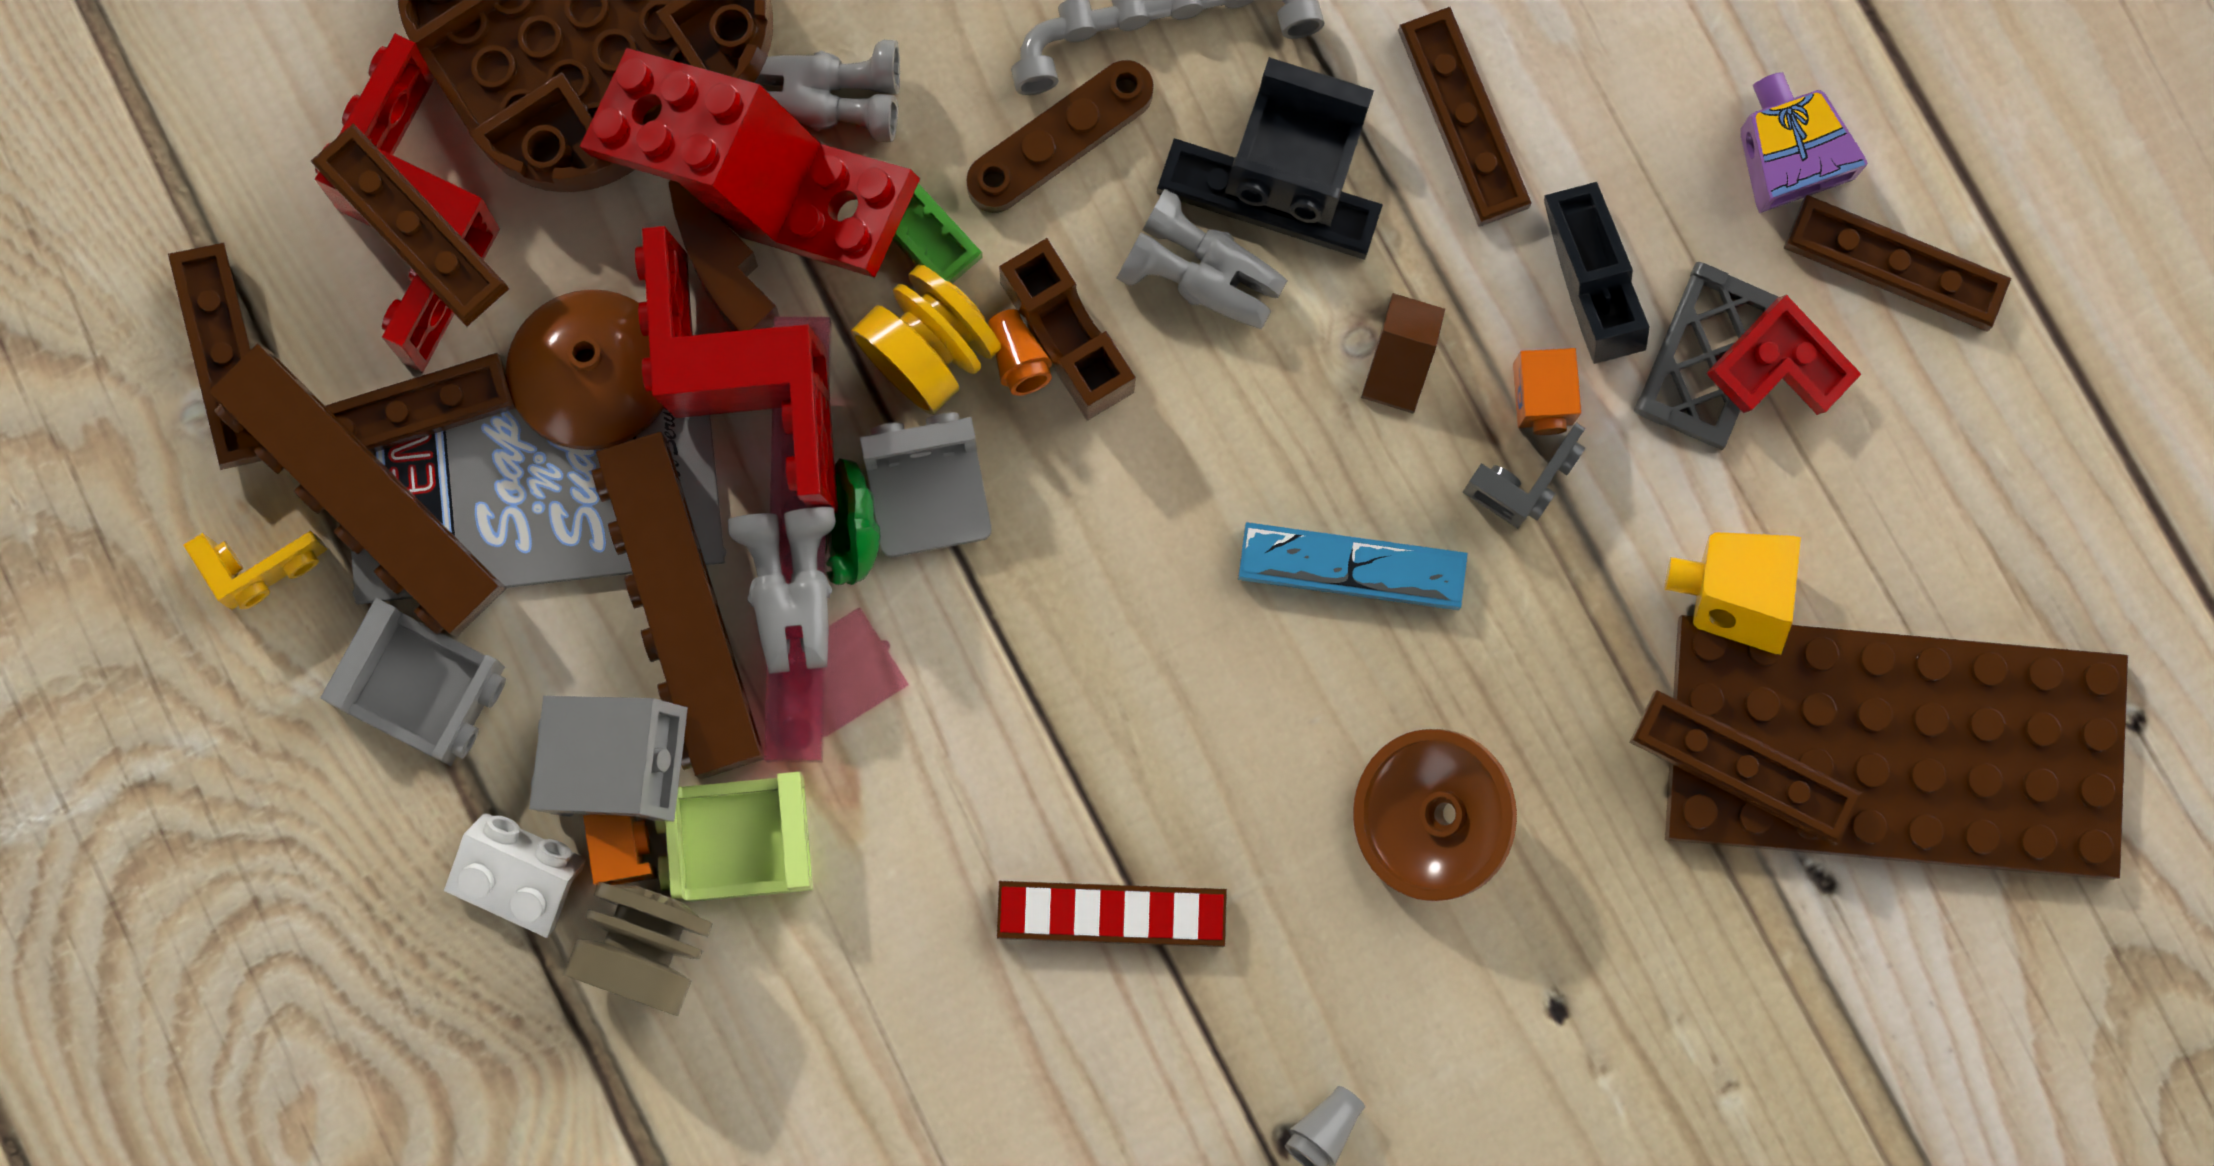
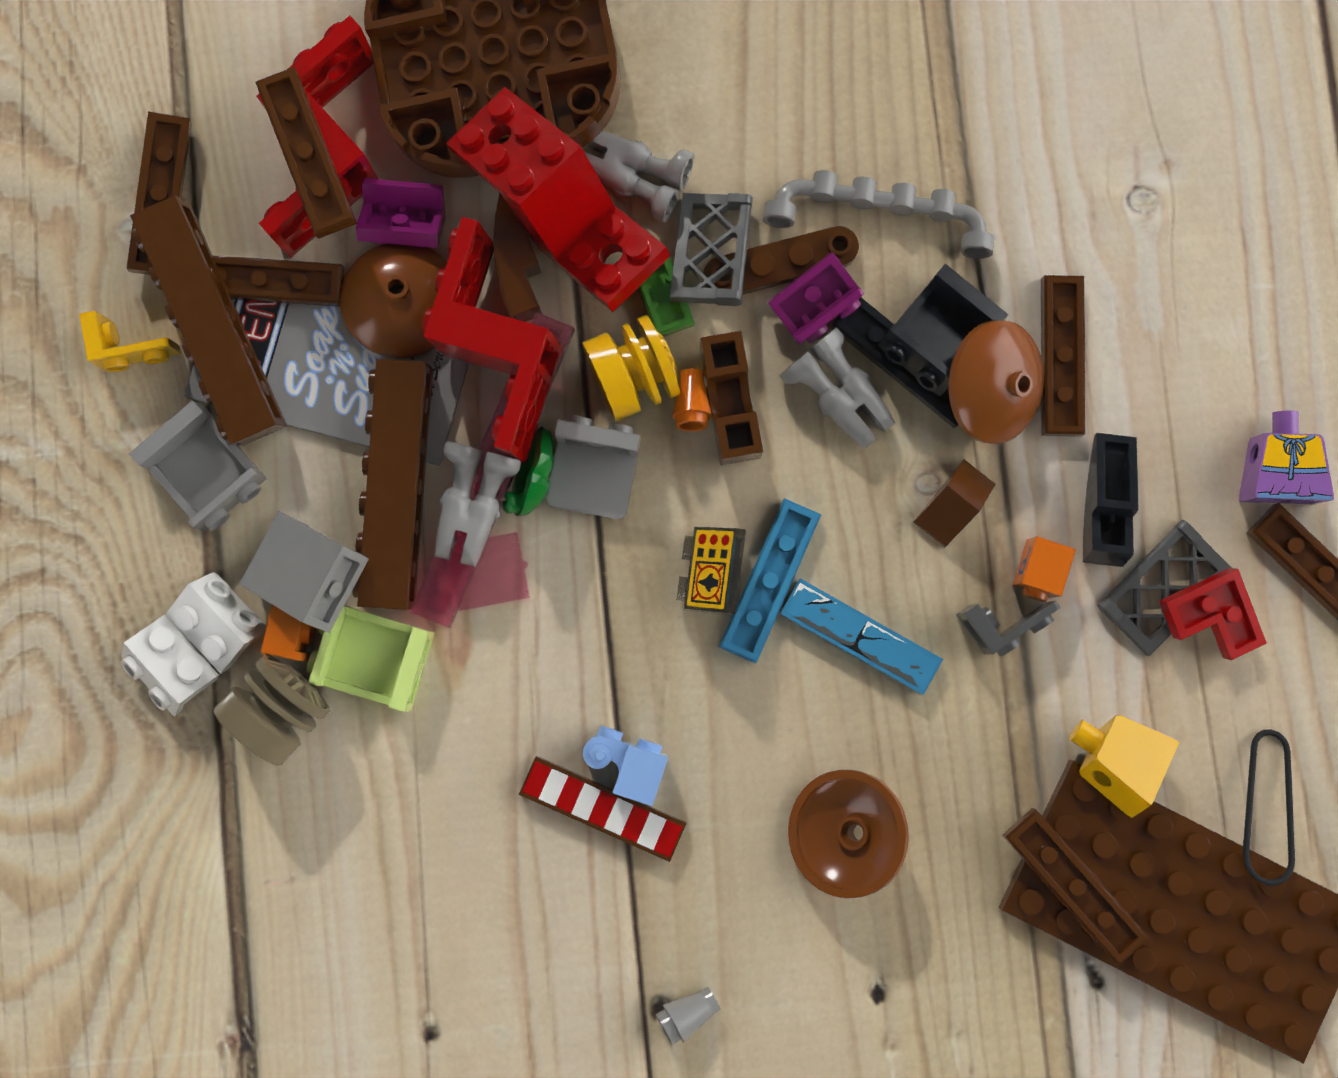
camera: 25 degrees right, 5 degrees up
(473, 955) = (167, 665): none -> white bracket
(550, 258) = (401, 213): none -> magenta bracket
(982, 206) = (706, 291): none -> dark grey window
(1125, 163) = (816, 299): none -> magenta bracket
(1131, 554) = (713, 570): none -> slope
(1136, 839) = (638, 765): none -> light blue brick
(1208, 542) = (769, 580): none -> dark azure tile
(1392, 180) = (996, 382): none -> dark orange dish
(1899, 502) = (1289, 809): none -> black piece

